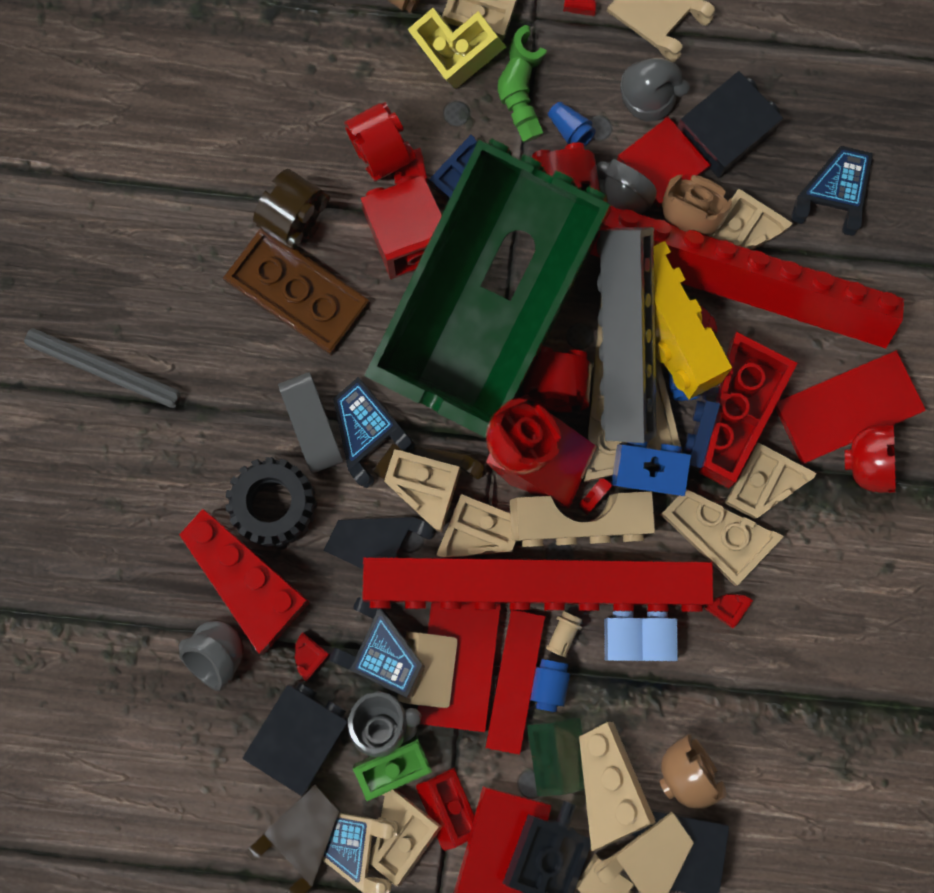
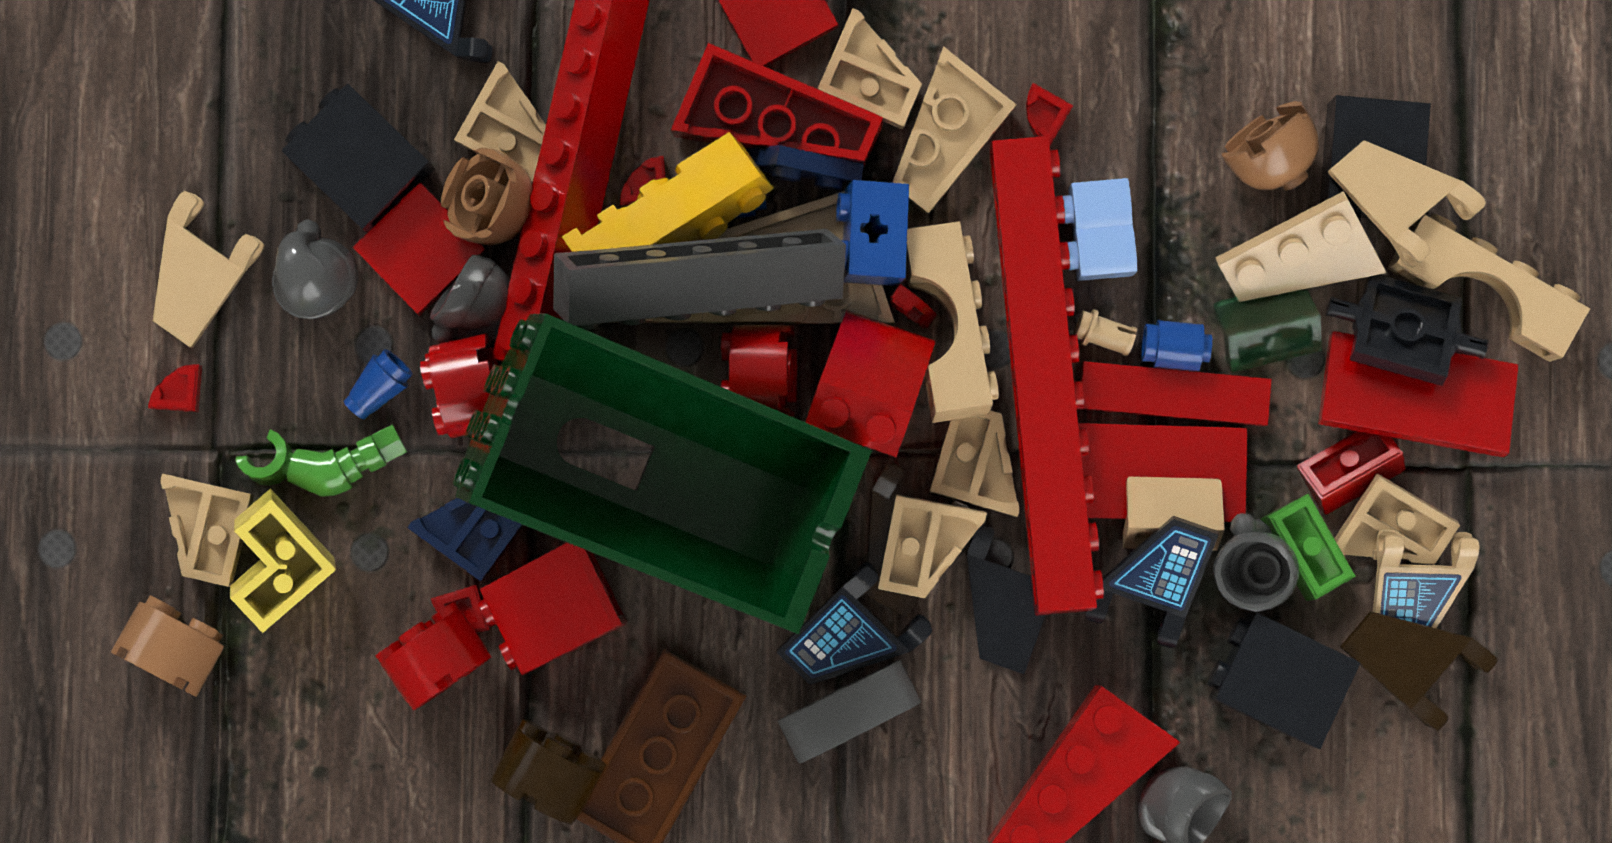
camera: 95 degrees left, 5 degrees up
(247, 486) = (1011, 759): black tyre -> none
(308, 656) = (1170, 677): red tile -> none
(522, 437) = (870, 406): red cylinder -> none

